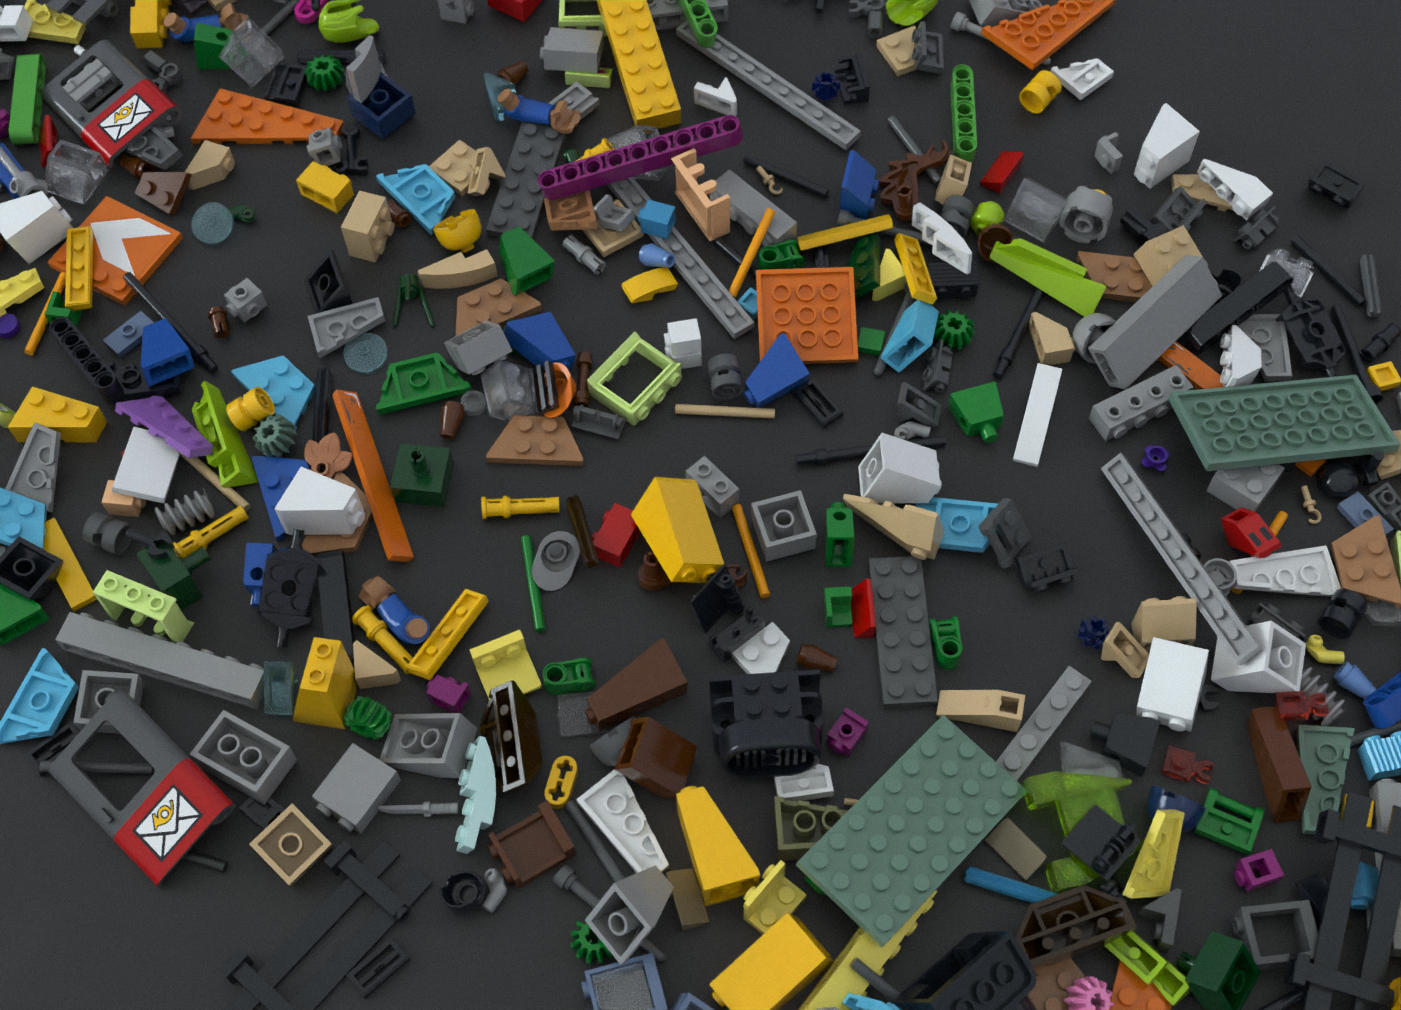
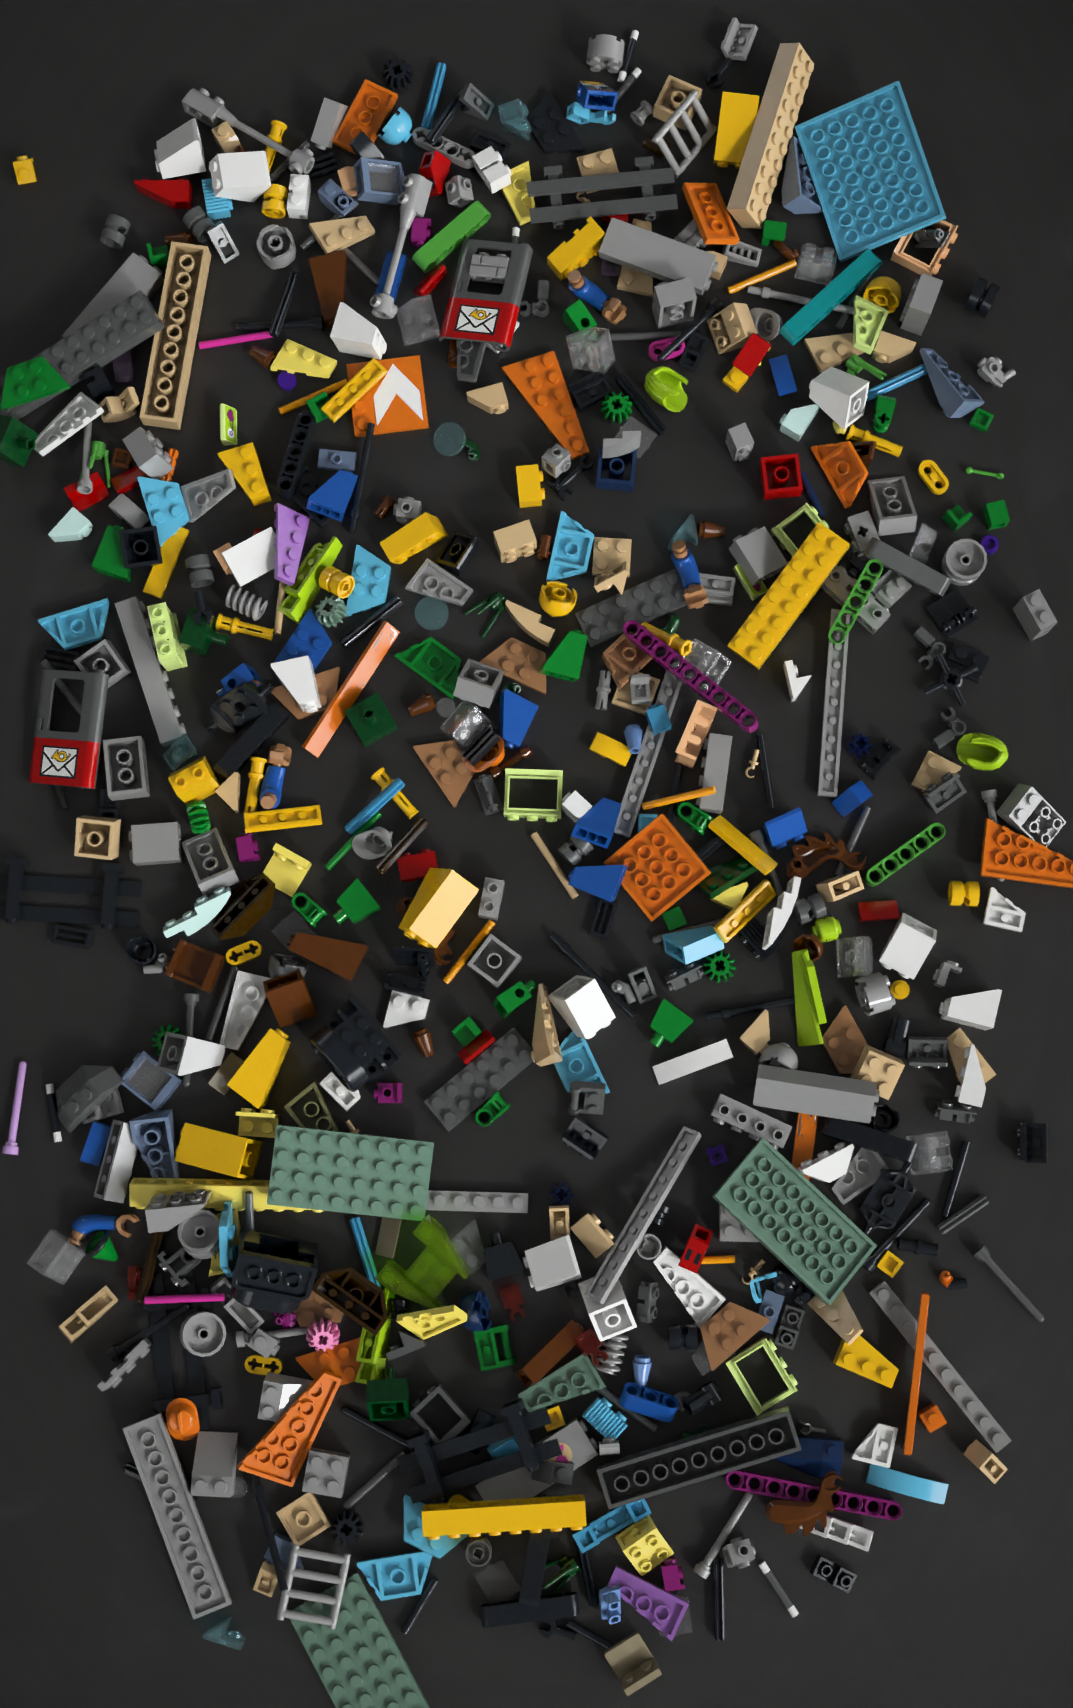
camera: 55 degrees right, 20 degrees up
(163, 189) = (448, 387): reddish brown wing -> none
(276, 312) = (413, 538): none -> yellow wedge
(327, 453) = (342, 653): nougat plate -> none
(427, 809) = (174, 890): light grey piece -> none
(516, 531) = (375, 805): none -> dark azure axle
(606, 622) = (355, 904): none -> green torso
(721, 332) = (598, 823): none -> blue slope
(872, 126) = (851, 798): none -> blue slope
(983, 707) = (460, 1159): tan slope -> none
(1059, 161) = (908, 946): none -> white slope
(1102, 842) = (415, 1284): black hinge -> none
(1264, 865) = (475, 1389): magenta brick -> none
(1321, 654) = (648, 1338): light yellow arm -> none
(1341, 513) = (766, 1276): none -> medium azure piece

